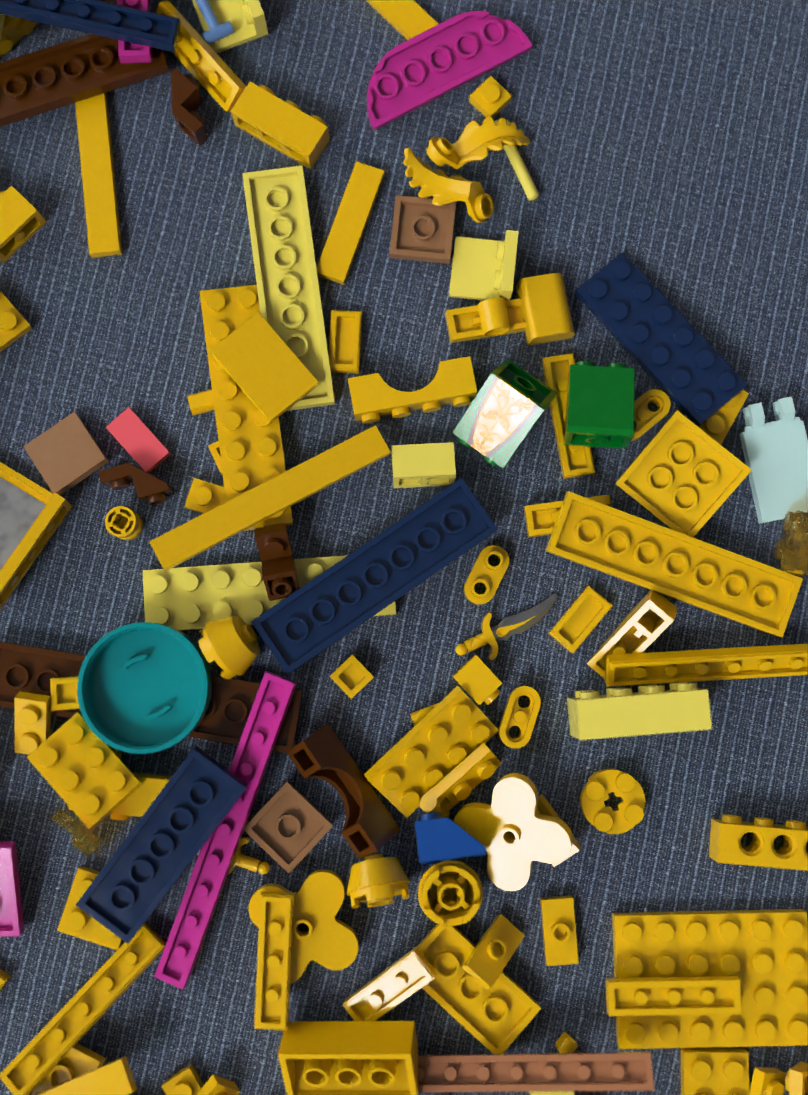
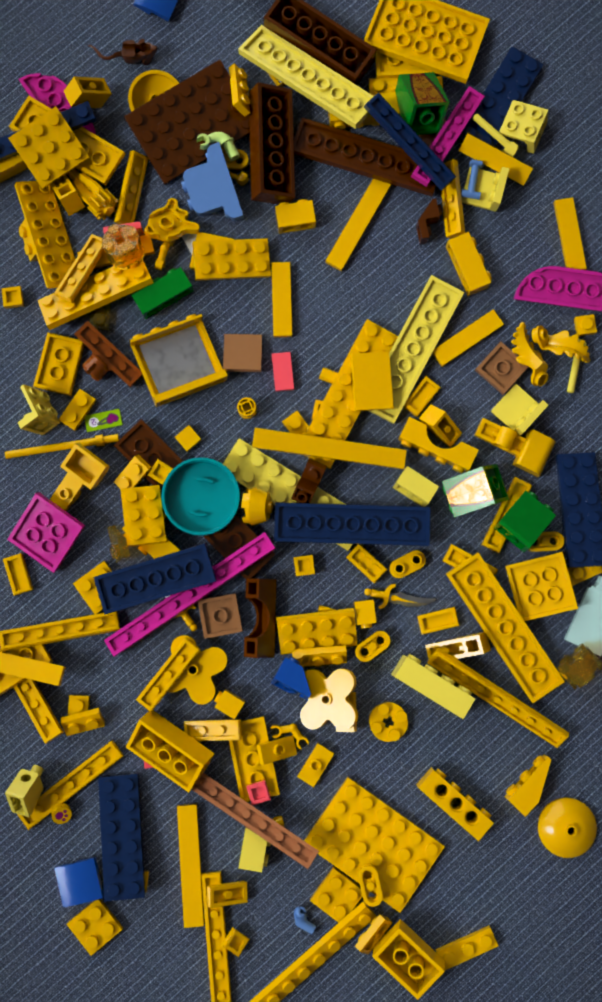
camera: 30 degrees right, 0 degrees up
(68, 346) = (281, 299): none -> yellow tile
(74, 620) = (188, 438): none -> yellow tile
(147, 486) = (271, 399): reddish brown slope -> none
(377, 881) = (244, 674): yellow cone -> none
(385, 936) = (229, 703): none -> yellow brick
(397, 360) = (440, 425): none -> yellow slope
(432, 613) = (366, 563): none -> yellow plate
(450, 893) = (276, 705): yellow cone -> none
(493, 905) = (290, 728): none -> yellow arm
(511, 1027) = (258, 792): none -> coral tile
(673, 996) = (349, 835): yellow plate -> none
(747, 1041) = (370, 884): none -> yellow plate

